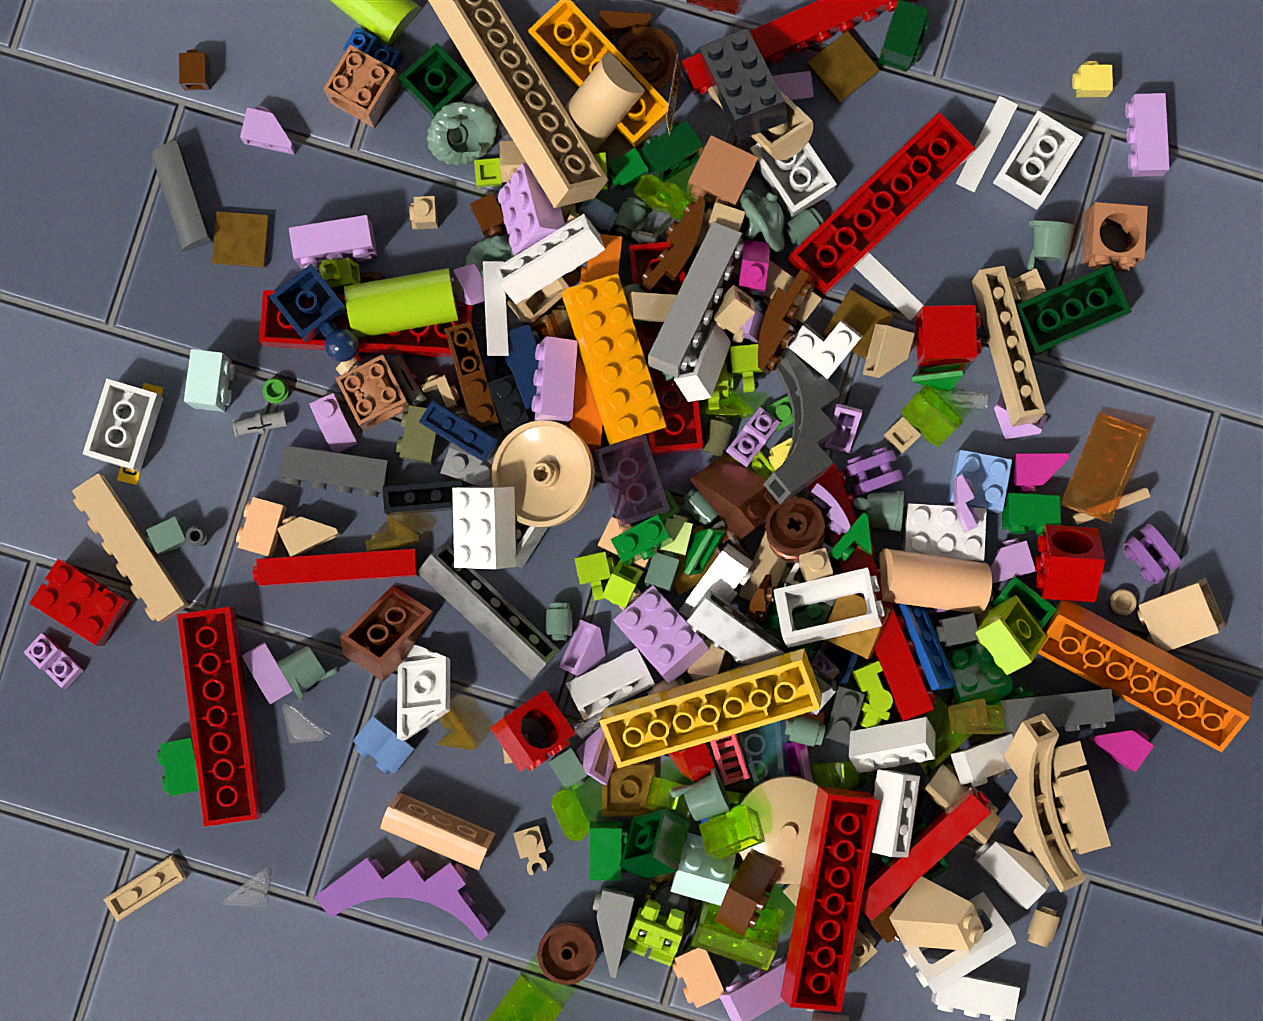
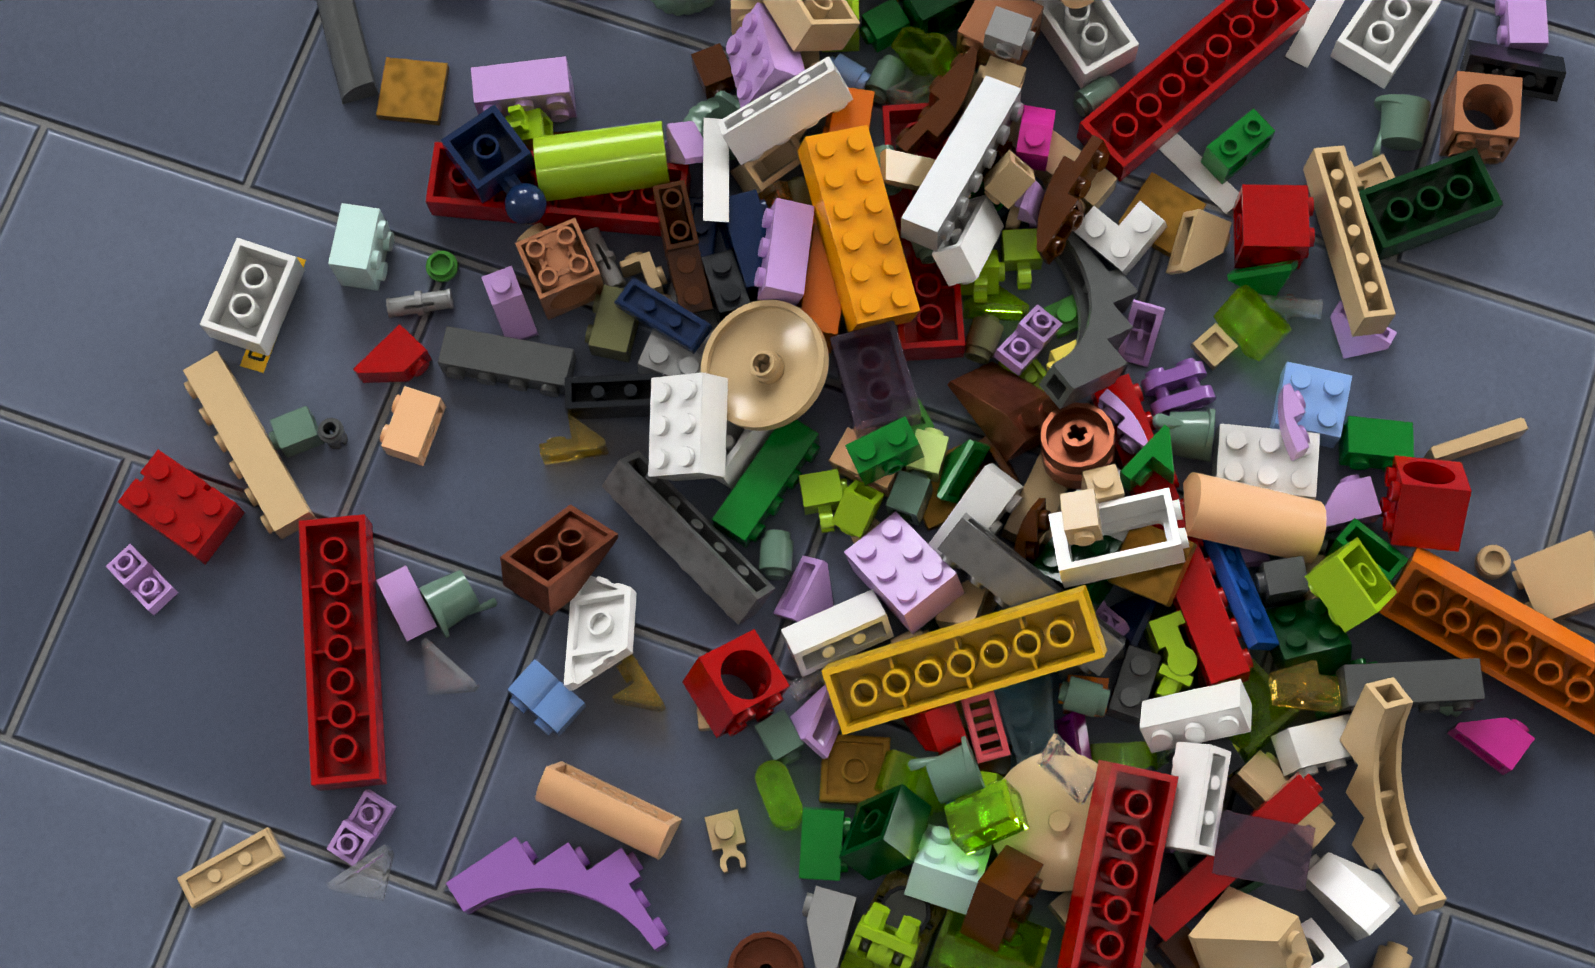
camera: 10 degrees right, 10 degrees down
(179, 767) = (286, 713): green brick -> none
(243, 472) = (394, 359): none -> red slope
(245, 852) = (361, 828): none -> lavender slope
(304, 534) = (467, 437): tan slope -> none
(336, 567) = (501, 478): red brick -> none
(424, 213) = (635, 66): tan brick -> none
(488, 172) = (715, 25): lime tile -> none
(547, 563) = (766, 481): none -> green brick
(698, 507) = (958, 422): sand green brick -> none
(730, 186) = (1008, 34): none -> light grey brick
(764, 217) = (1050, 82): sand green piece -> none
(794, 795) = (1067, 769): none -> clear slope
(799, 596) = (1081, 517): none -> brick
(918, 265) = (1237, 146): none -> green brick
(945, 852) = (1263, 850): none -> piece
(1034, 470) = (1381, 392): dark pink slope -> none
(1076, 800) = (1435, 801): tan piece -> none
(1104, 467) = (1469, 392): clear orange tile -> none
(1131, 188) = (1540, 72): none -> black brick
(1150, 569) = (1529, 520): medium lavender brick -> none

